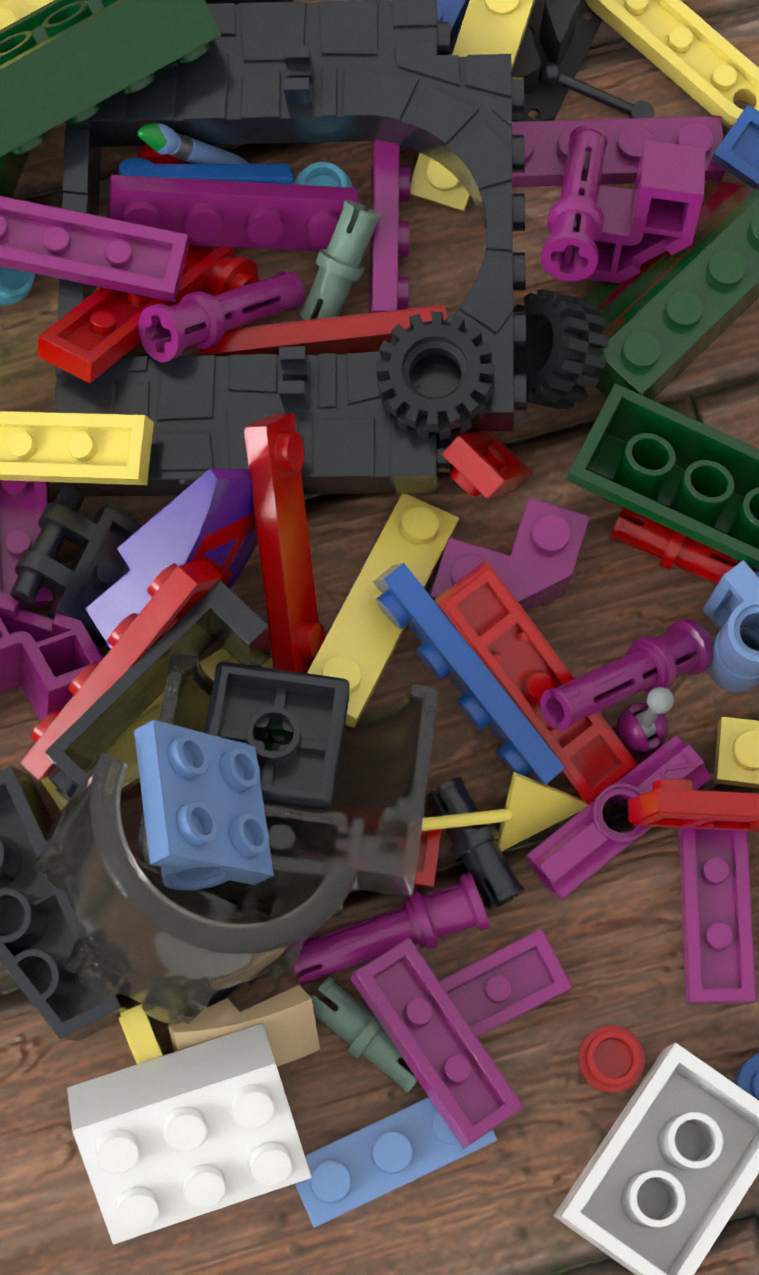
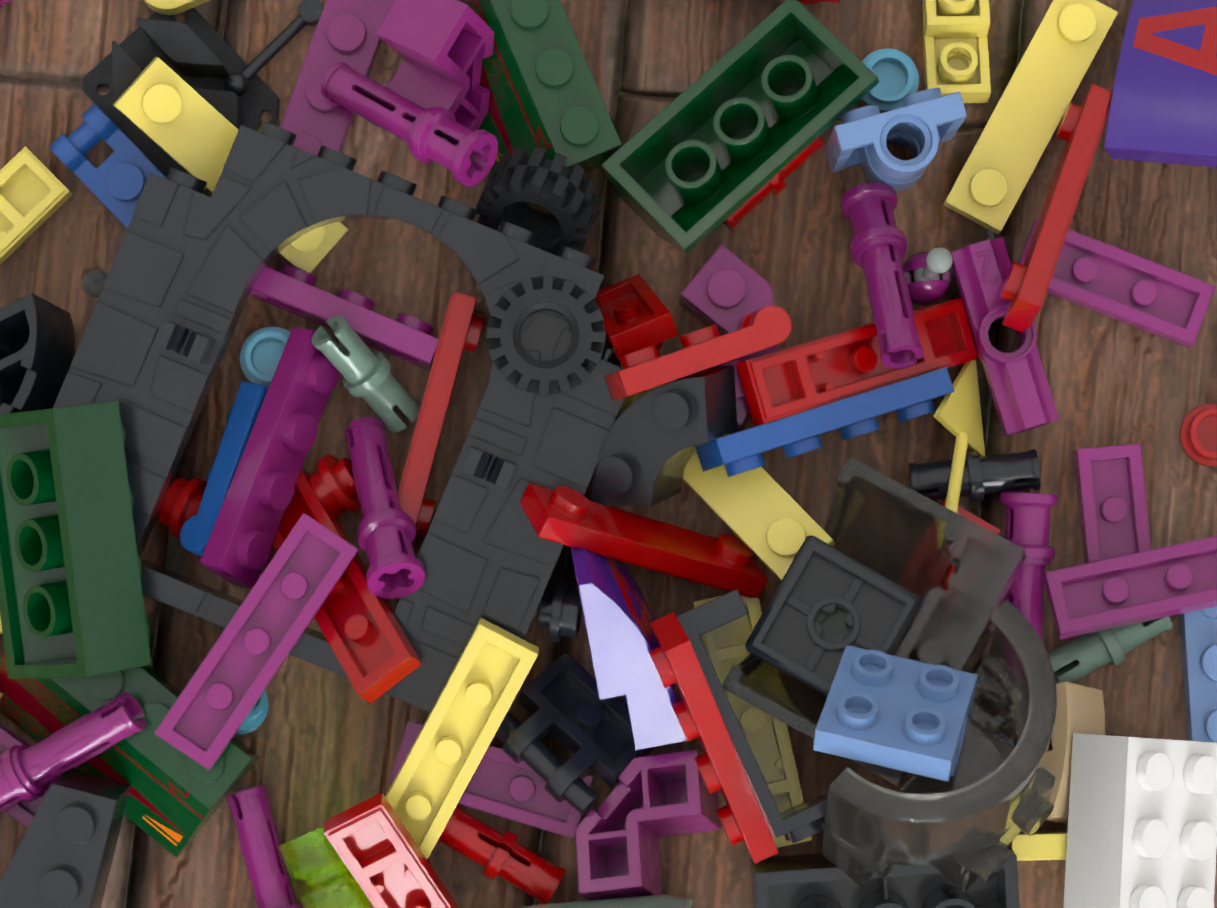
camera: 70 degrees left, 10 degrees up
(167, 141) = (178, 494): medium blue piece -> none
(388, 521) = (657, 435): none -> black brick
(478, 520) = (700, 351): none -> red plate

